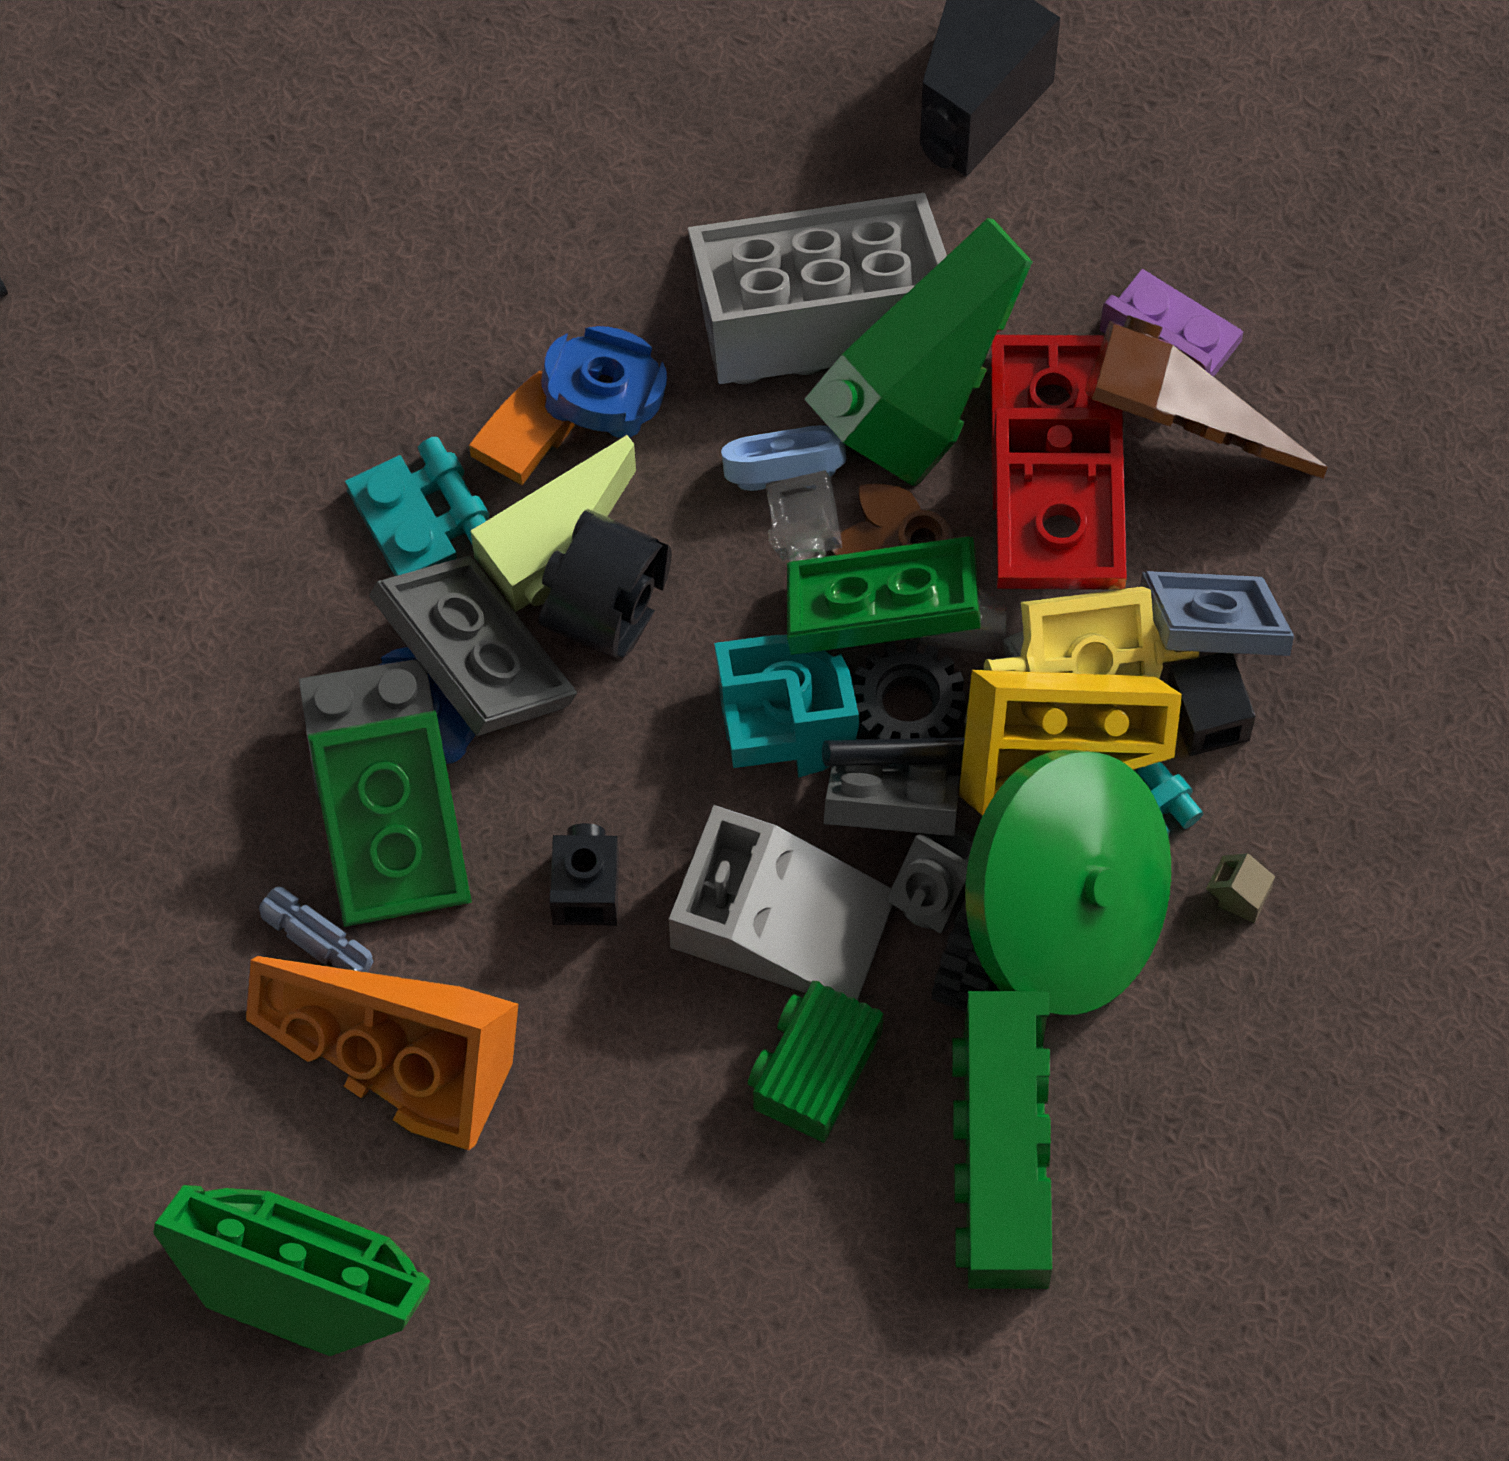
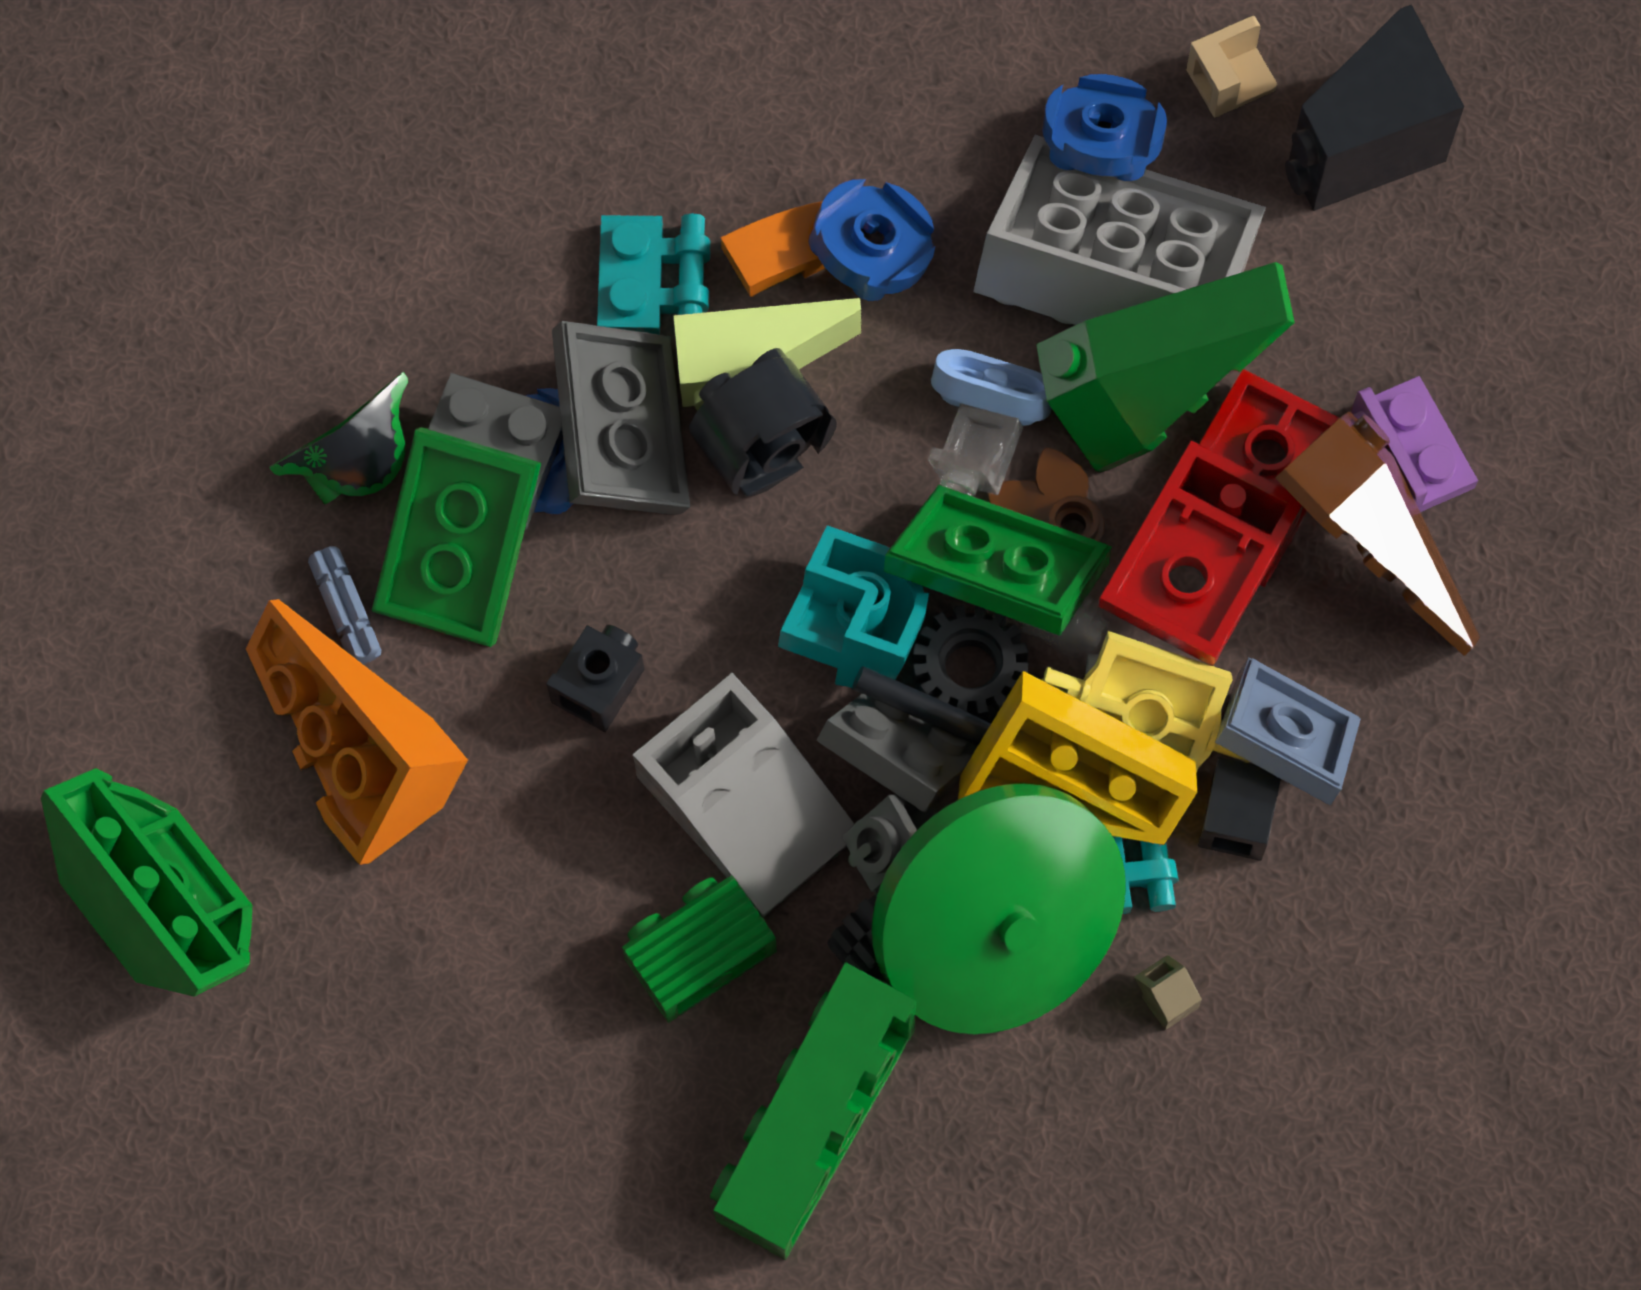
camera: 30 degrees right, 5 degrees up
(249, 792) = (356, 454): none -> black hat
(774, 202) = (1120, 151): none -> blue plate
(823, 90) = (1229, 67): none -> tan panel

